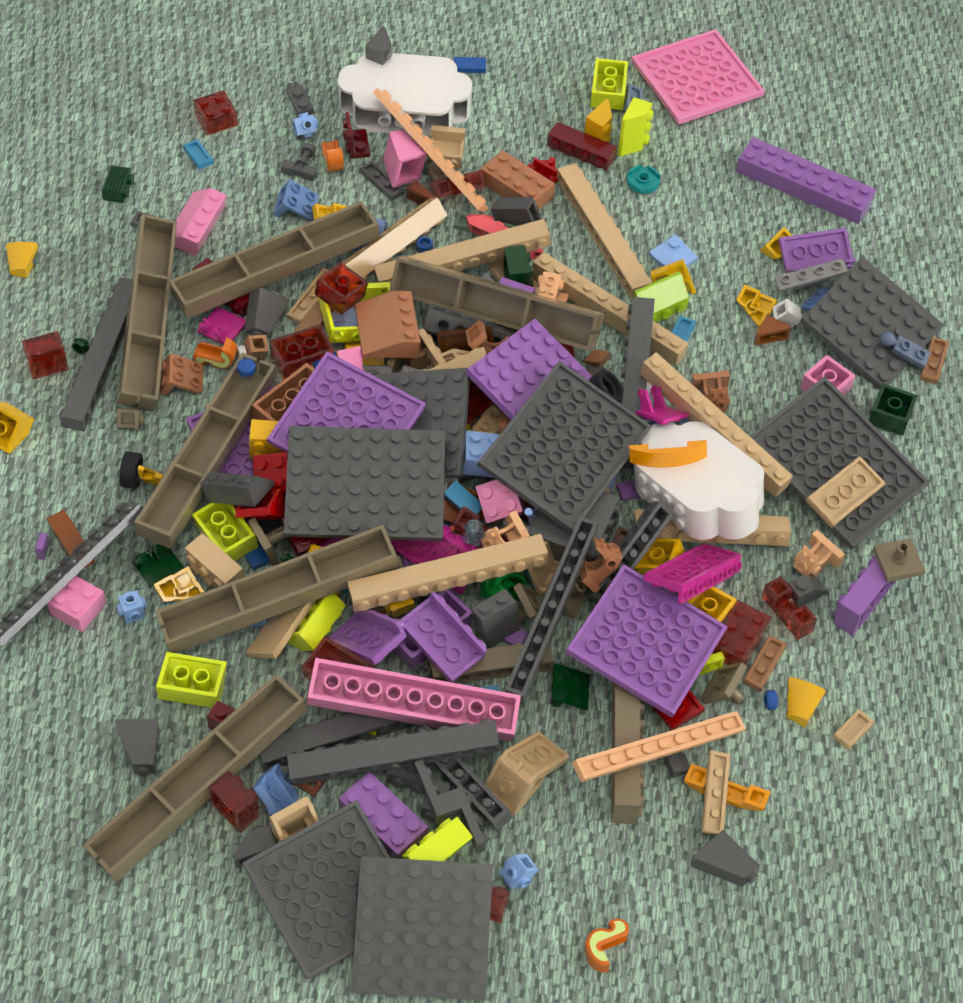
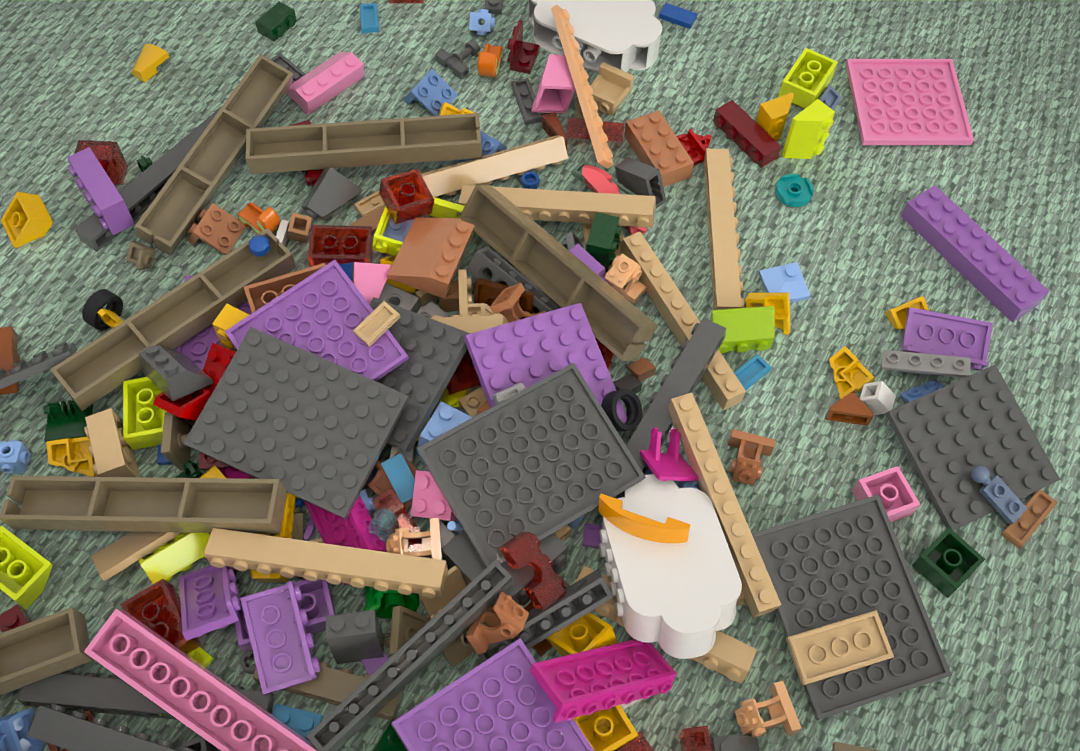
camera: 25 degrees right, 5 degrees up
(72, 374) = (100, 191): none -> medium lavender brick
(221, 325) = (284, 193): dark pink plate -> none
(389, 387) = (376, 323): none -> tan tile
(517, 405) = (507, 393): none -> light grey piece
(619, 525) = (546, 585): none -> clear red arch

